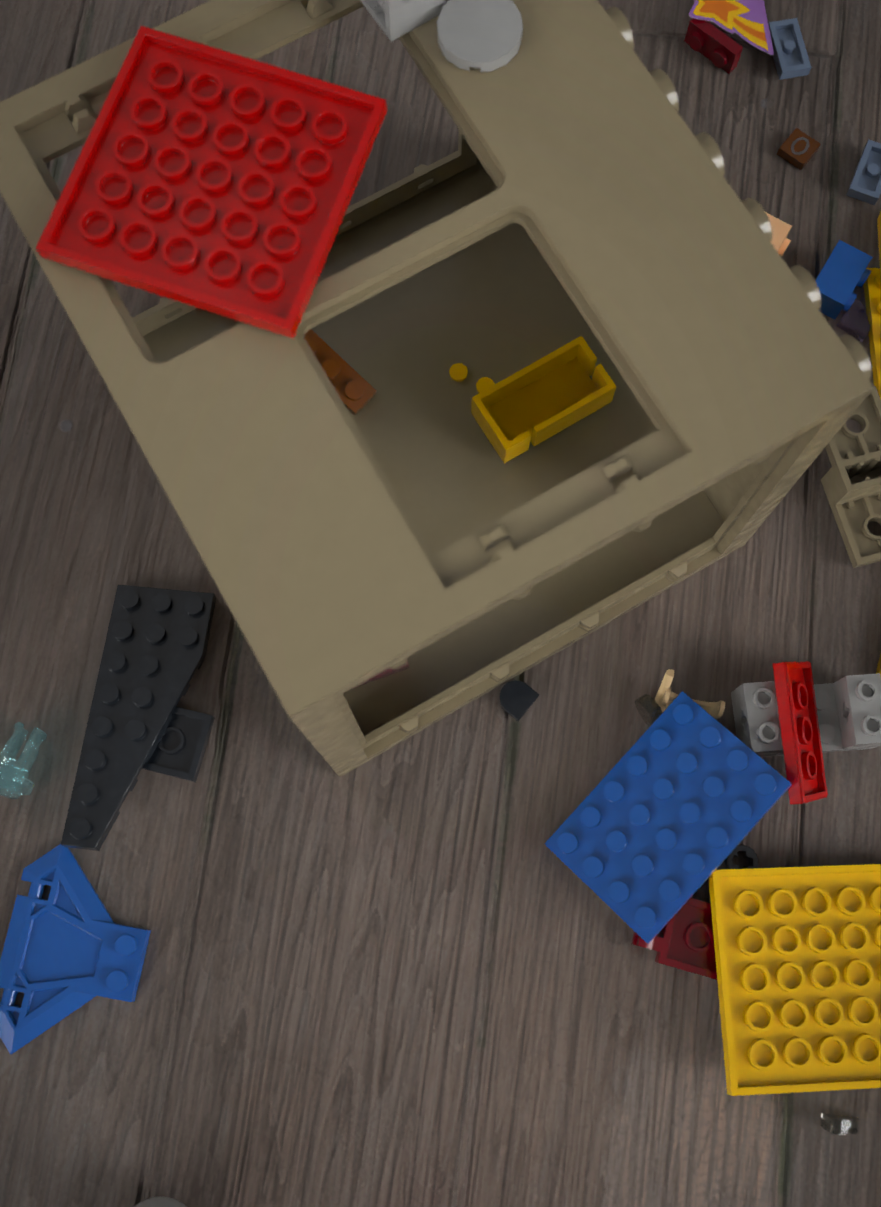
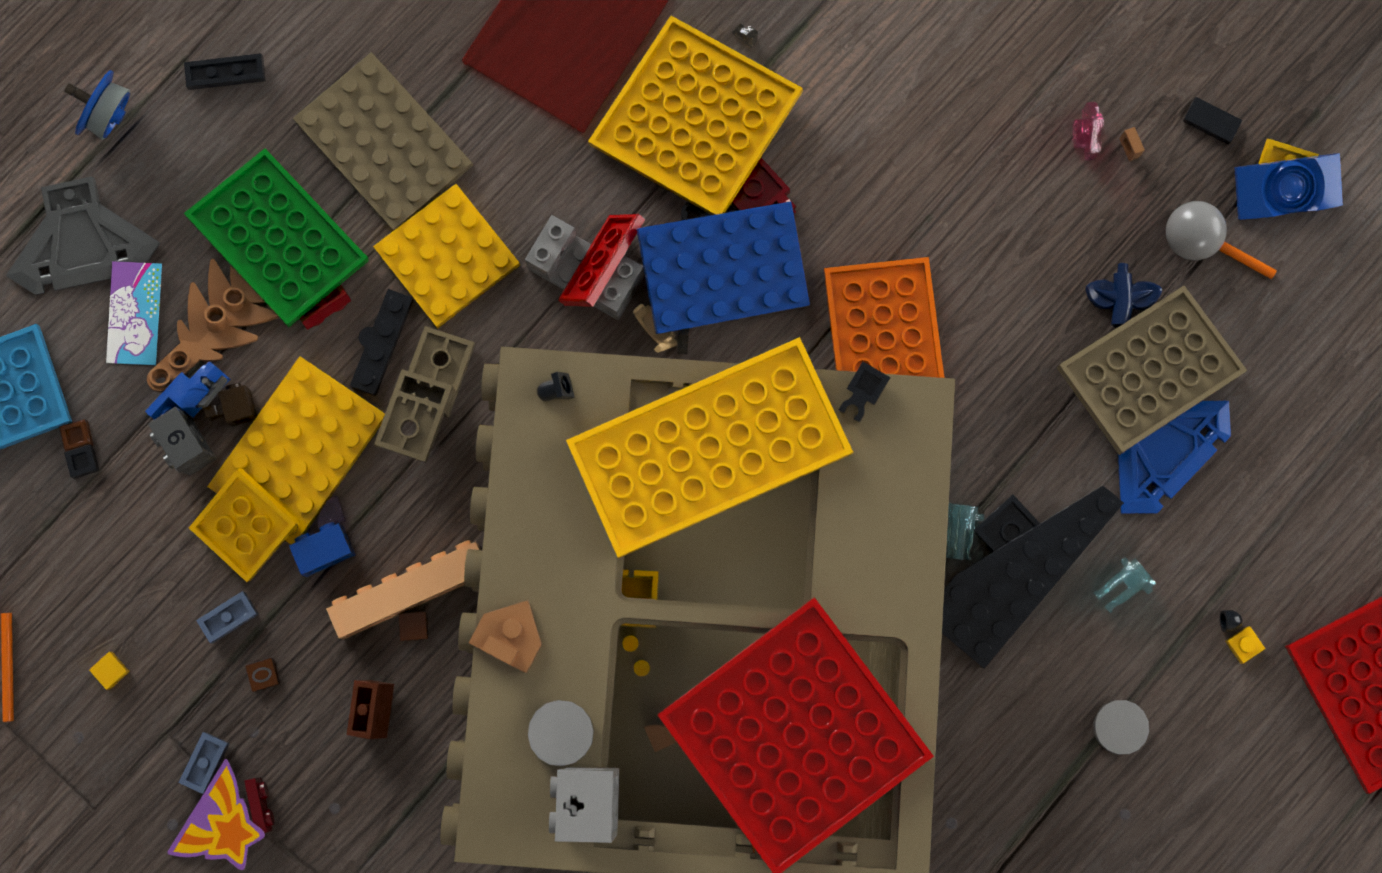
camera: 145 degrees left, 5 degrees up
(115, 1029) = (1151, 369): none -> dark tan plate
(201, 1100) = (1122, 295): none -> dark blue plant
(230, 715) = (961, 530): none -> clear light blue piece
(395, 621) = (866, 386): none -> black plate
(396, 320) = (659, 737): none -> medium nougat tile
(437, 862) = (884, 317): none -> orange plate
(536, 428) = (709, 447): none -> yellow plate
(610, 83) = (509, 635): none -> medium nougat plate
(761, 378) = (558, 387): none -> black piece

